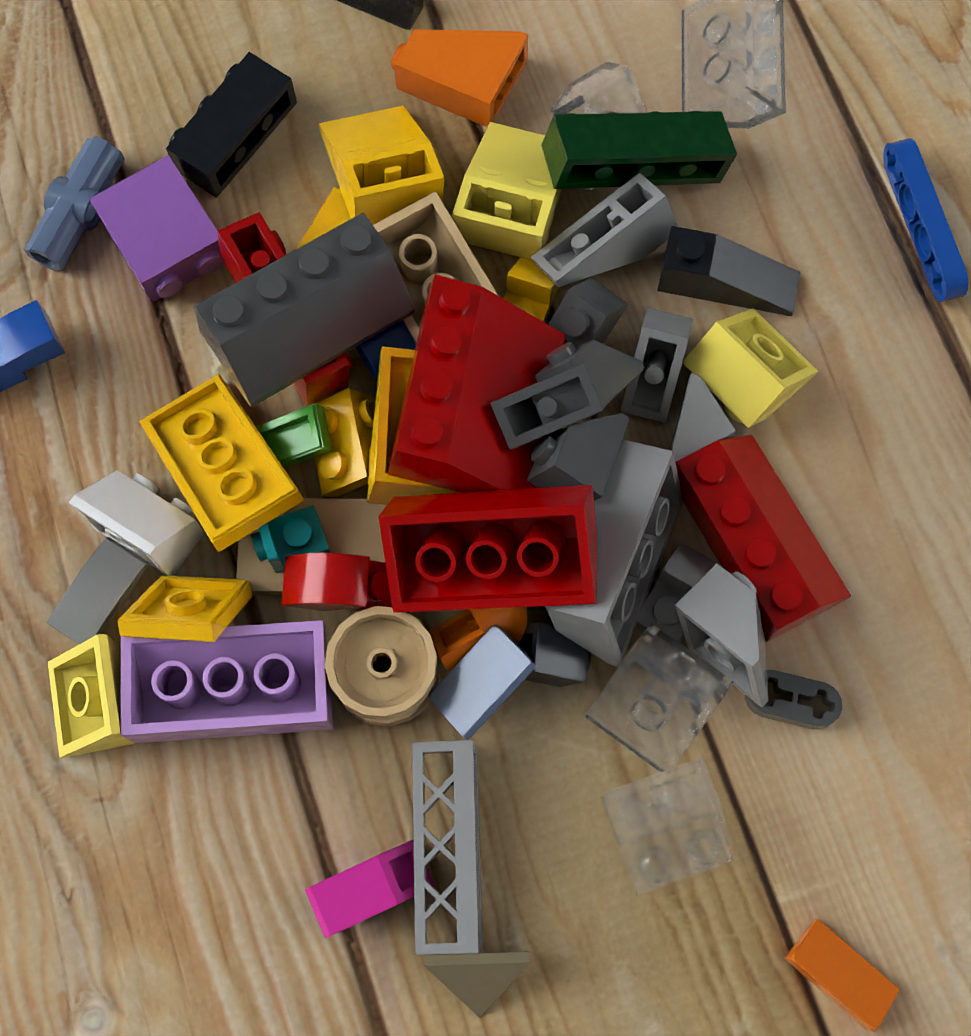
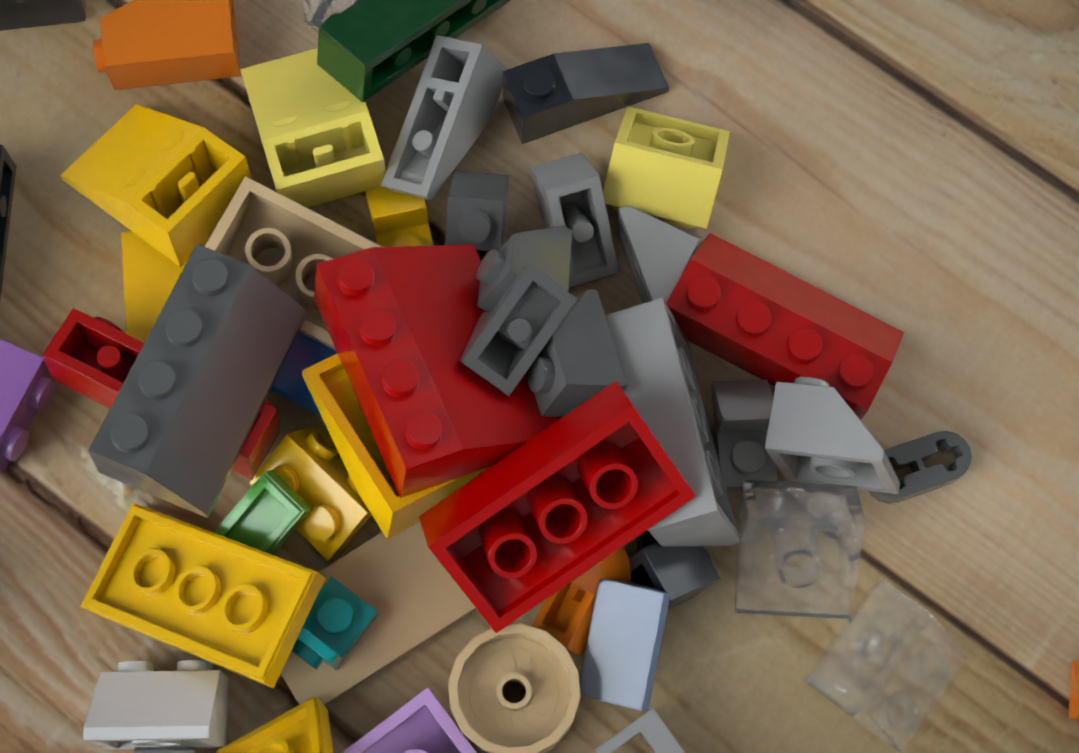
camera: 40 degrees left, 0 degrees up
(334, 582) = (413, 640): red brick -> none

